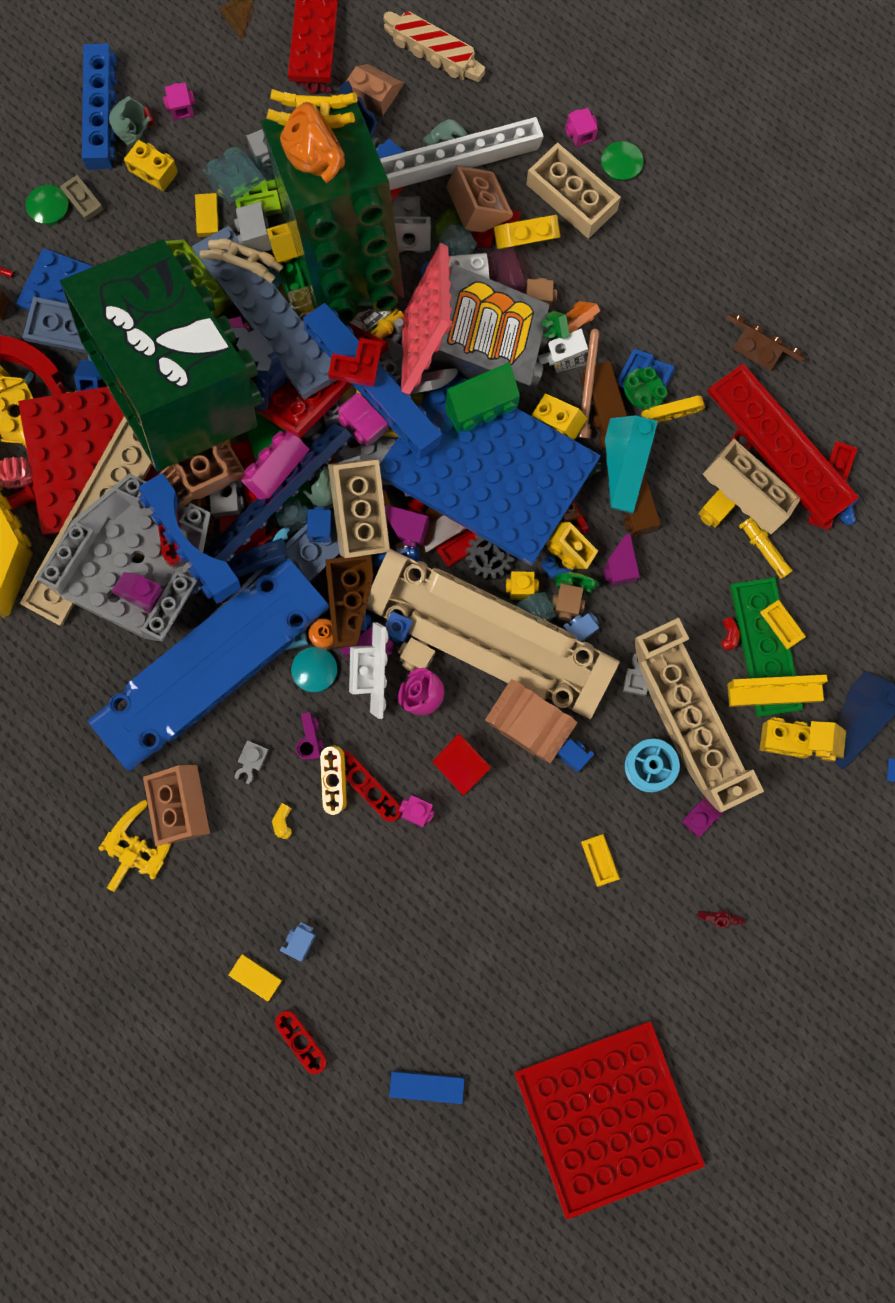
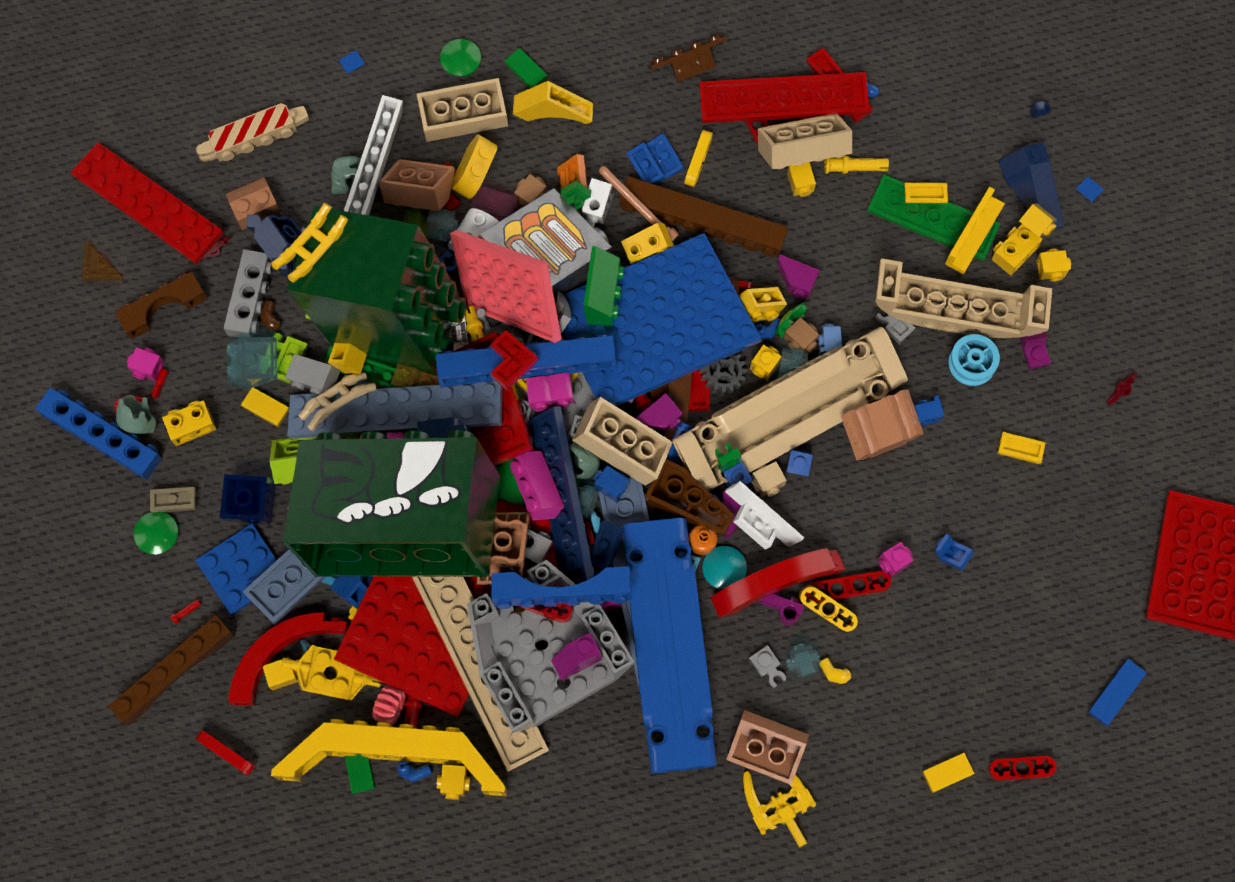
camera: 55 degrees left, 5 degrees down
(111, 241) = (247, 499): none -> clear blue brick
(177, 122) = (159, 383): none -> red pin
(216, 68) = (137, 315): none -> reddish brown arch
(272, 788) = (803, 661): none -> clear light blue brick
(299, 941) = (942, 717): medium blue brick -> none
(311, 143) = (349, 260): orange piece -> none
(330, 721) = (776, 578): none -> red arch
(403, 607) = (727, 460): none -> green tile
(421, 693) = (802, 493): dark pink cylinder -> none
(449, 671) = (799, 462): none -> blue brick
(457, 858) = (953, 552): none -> blue bracket
(461, 764) = (880, 501): red piece -> none
(555, 81) = (351, 62): none -> blue piece
(581, 127) = (410, 68): dark pink brick -> none
(627, 452) = (715, 210): teal wedge -> none
(631, 253) = (551, 102): none -> yellow arch
(644, 388) = (668, 166): green dish -> none
(651, 219) = (525, 69): none -> green tile
(733, 635) = (909, 234): red arm -> none
(796, 782) = (1053, 265): none -> yellow brick

